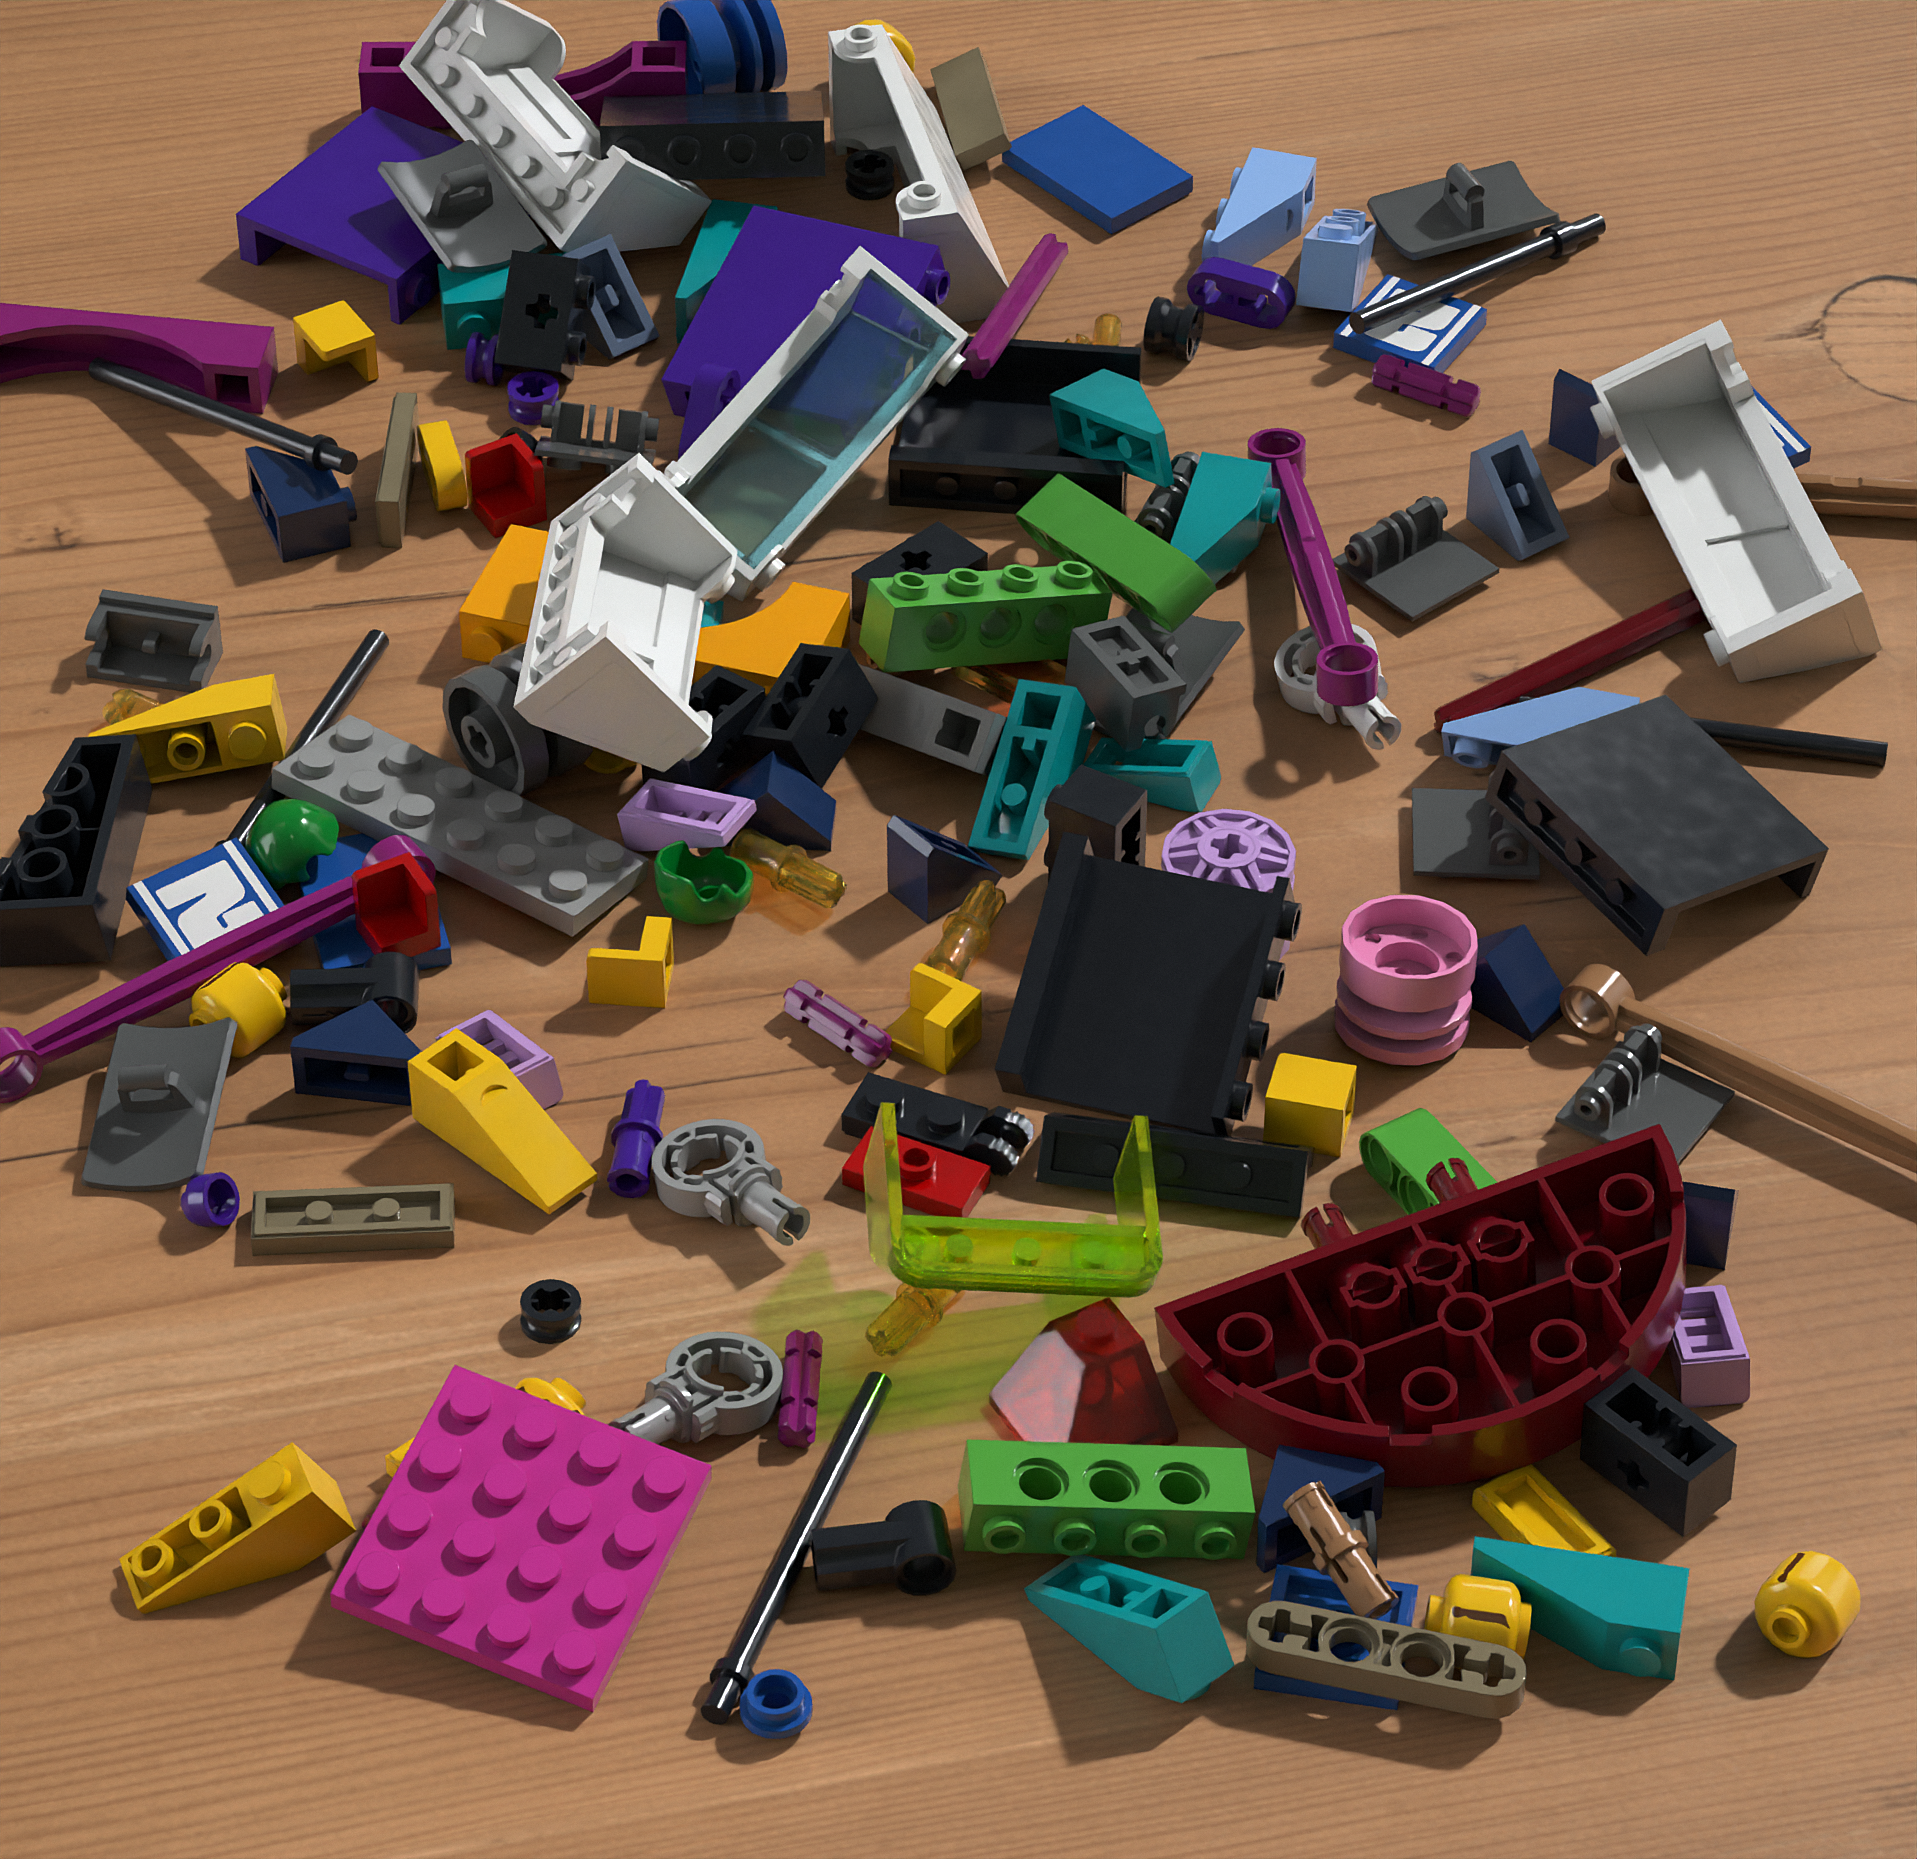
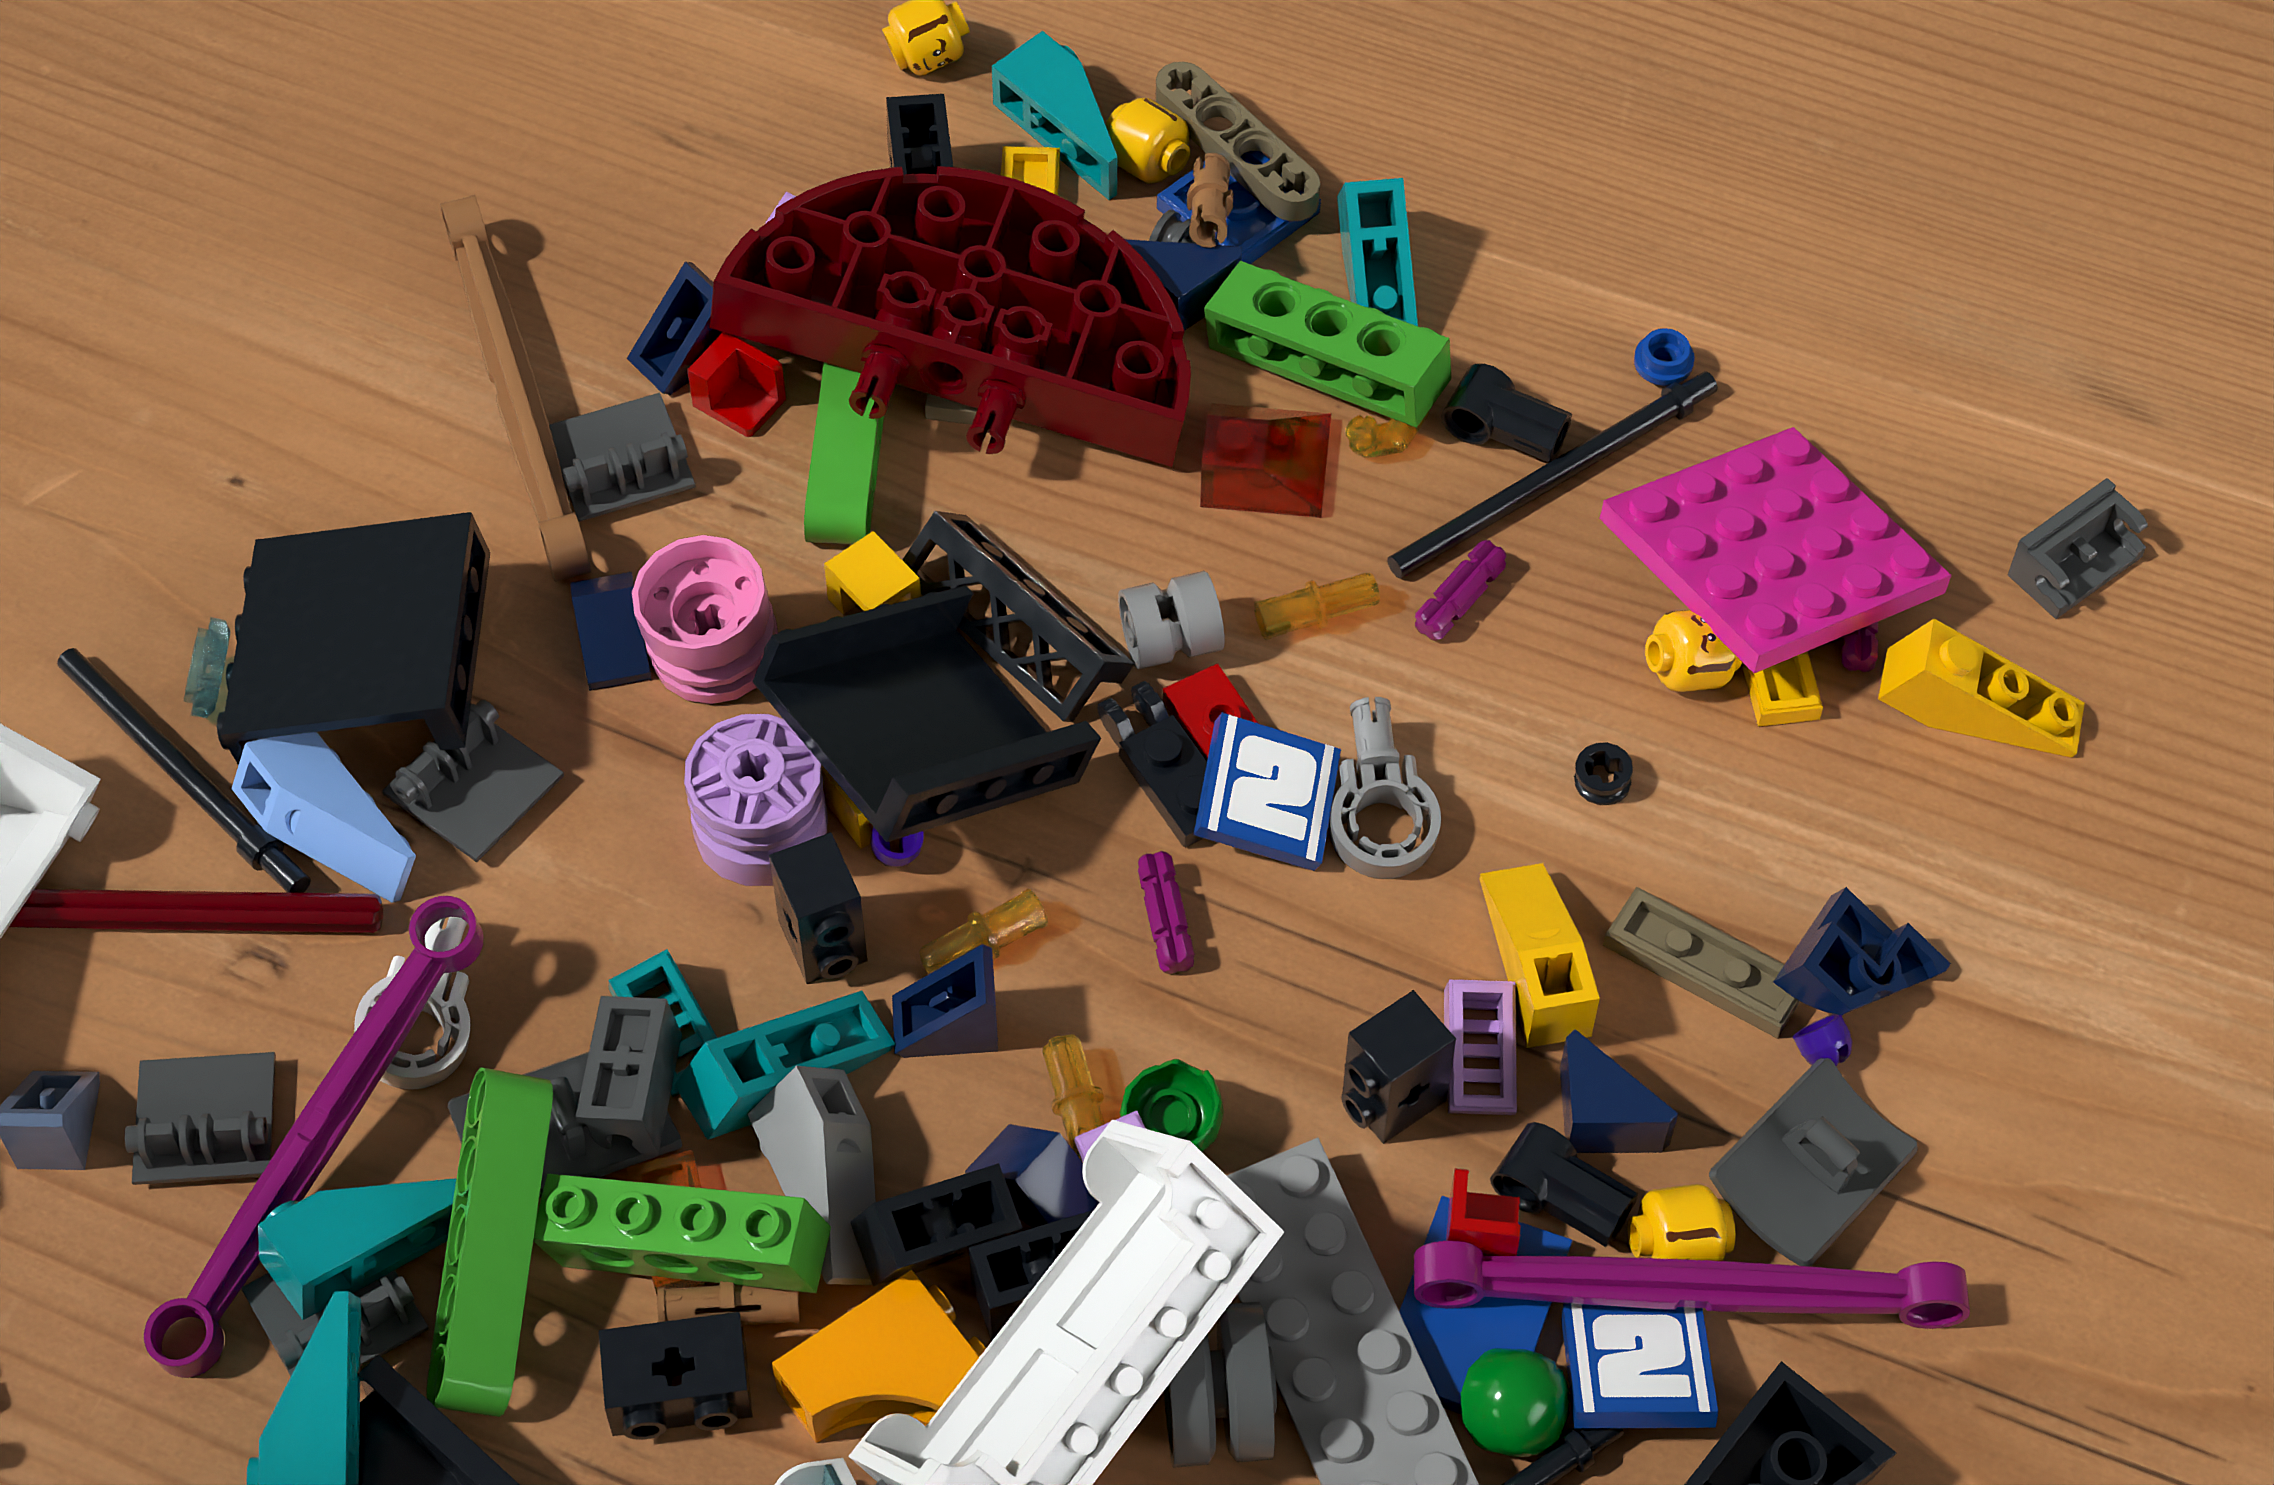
camera: 145 degrees left, 15 degrees up
(220, 1262) = (1856, 958): none -> dark blue slope
(226, 1730) = (2078, 549): none -> dark grey hinge
(543, 965) = (1397, 1067): none -> black brick
(634, 976) = (1296, 1070): yellow panel -> none
(636, 1140) = (1421, 890): dark purple axle -> none
(689, 1408) = (1562, 602): light grey pin -> none
(821, 1122) = (1267, 792): none -> tile
(940, 1022) = (1090, 851): yellow panel -> none
(1016, 1253) = (1236, 523): clear neon green windscreen -> none
(1033, 1186) = (1192, 626): none -> light grey wheel
(1759, 760) = (207, 667): none -> clear light blue gear

